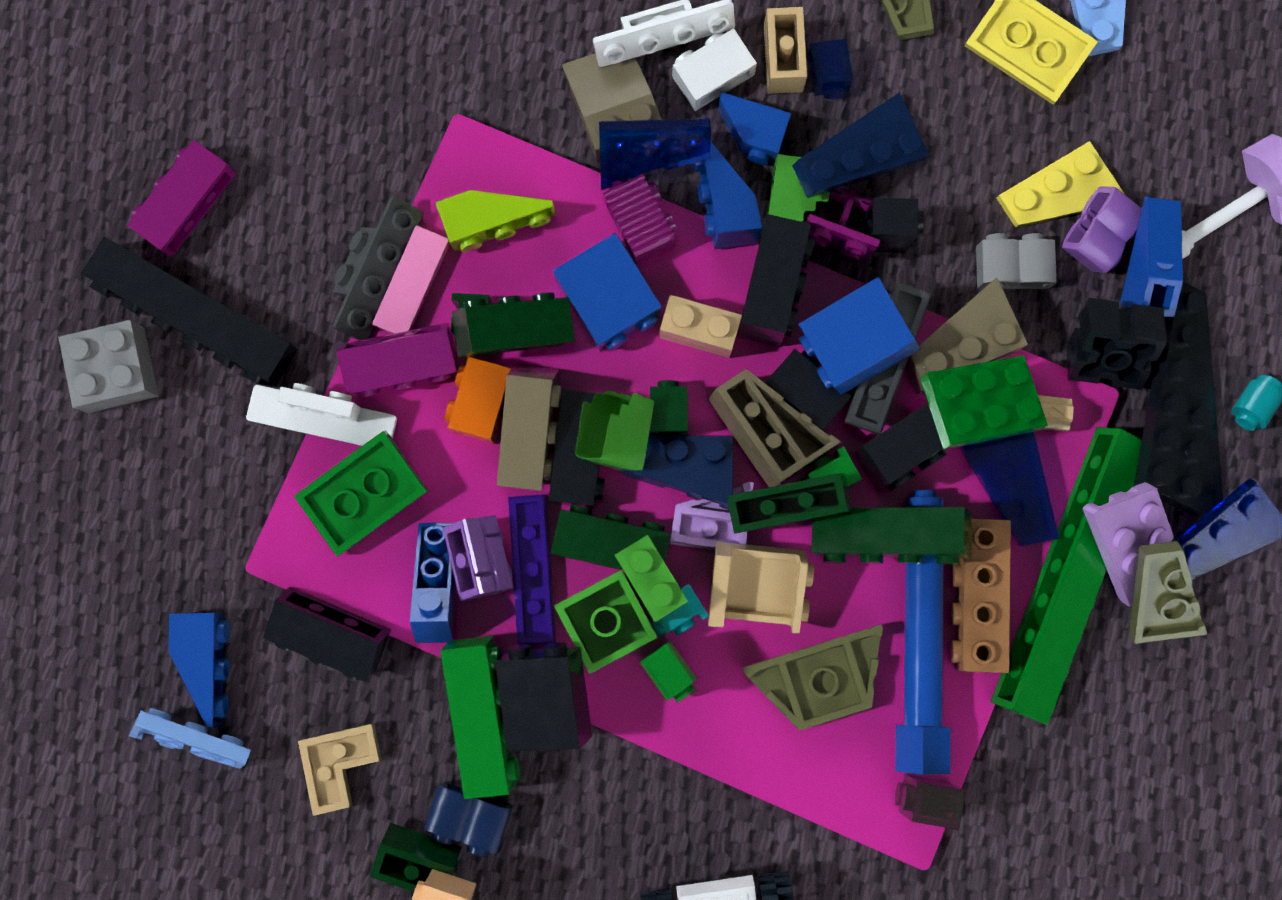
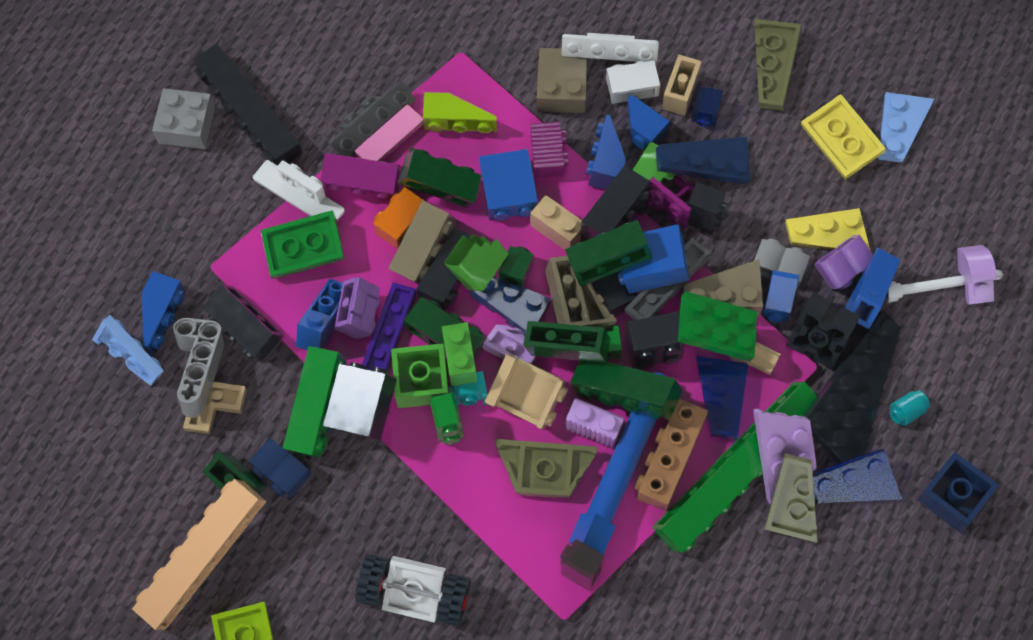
camera: 20 degrees right, 15 degrees down
(181, 198) = (272, 41): magenta brick -> none
(293, 730) = (206, 345): none -> light grey beam
(647, 145) = (571, 106): clear blue wing -> none
(799, 356) = (608, 253): none -> dark green brick
(865, 593) = (594, 423): none -> lavender brick
(1040, 314) = (780, 296): none -> slope

